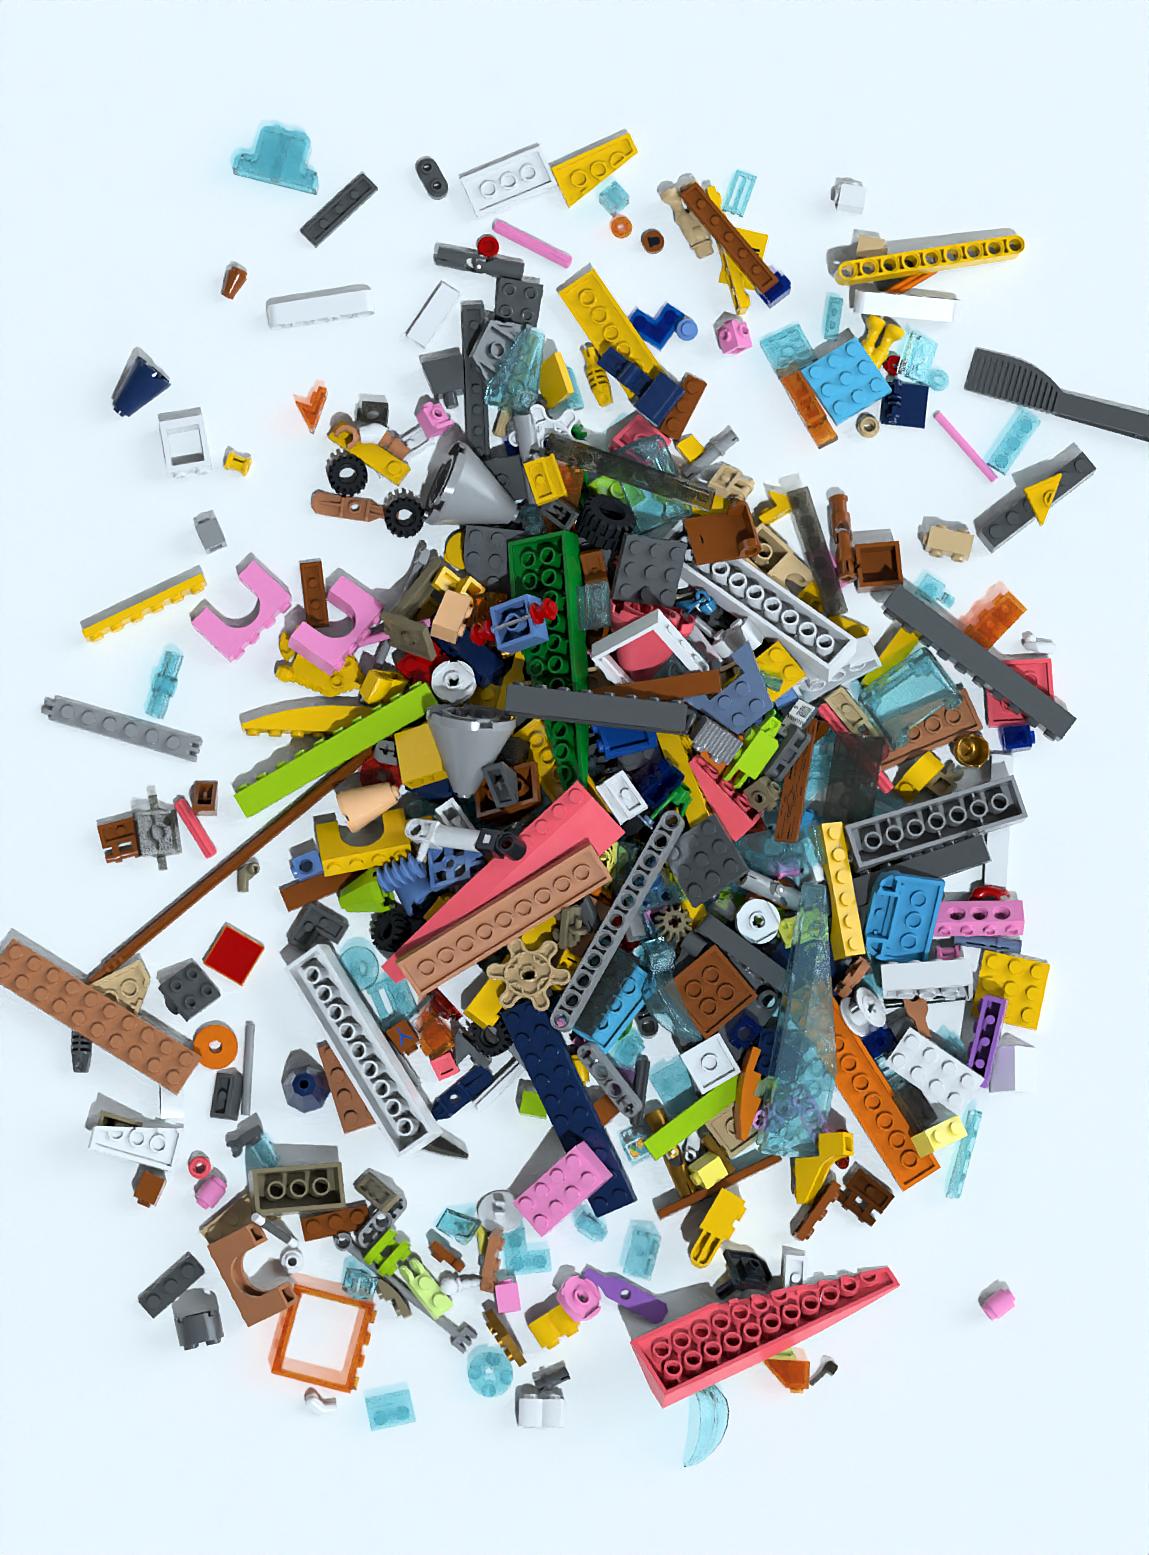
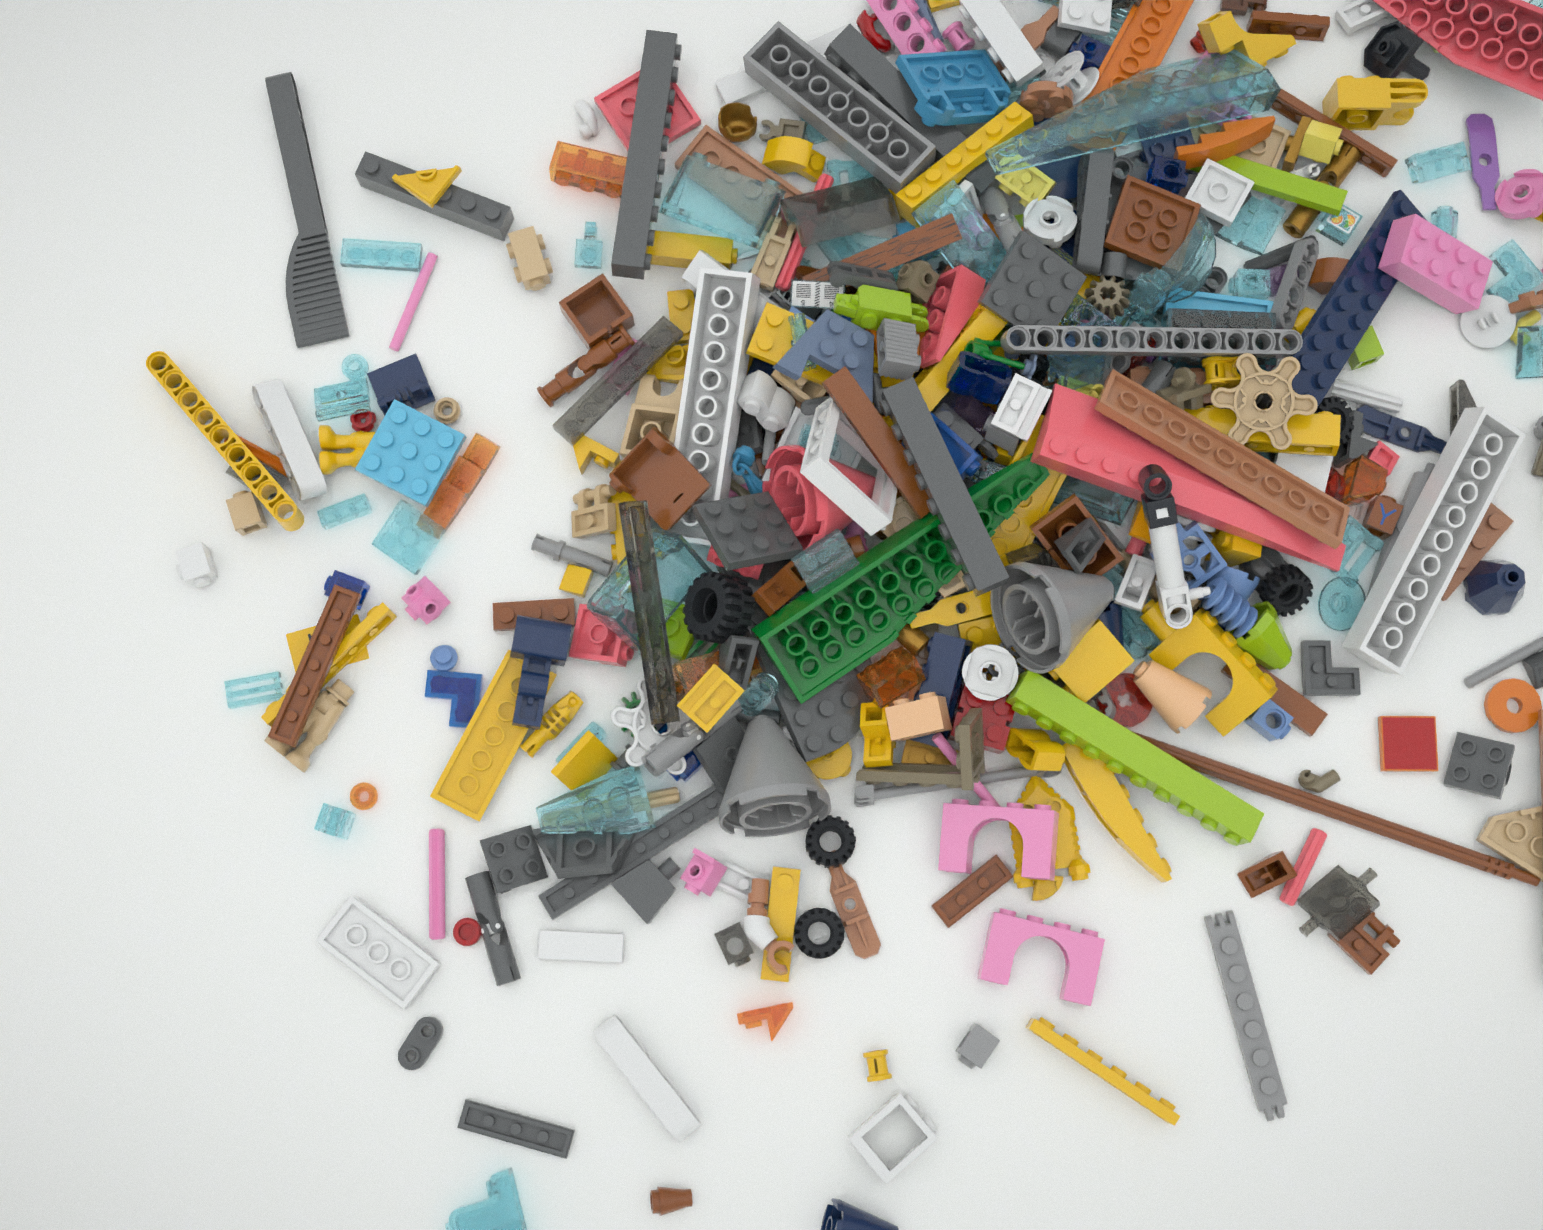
camera: 120 degrees left, 0 degrees up
(164, 685) = (1172, 995): clear light blue piece -> none
(516, 624) = (894, 632): medium blue brick -> none
(586, 171) = (316, 871): yellow wing -> none
(653, 242) = (362, 752): dark orange tile -> none
(1017, 739) = (697, 87): clear blue brick -> none

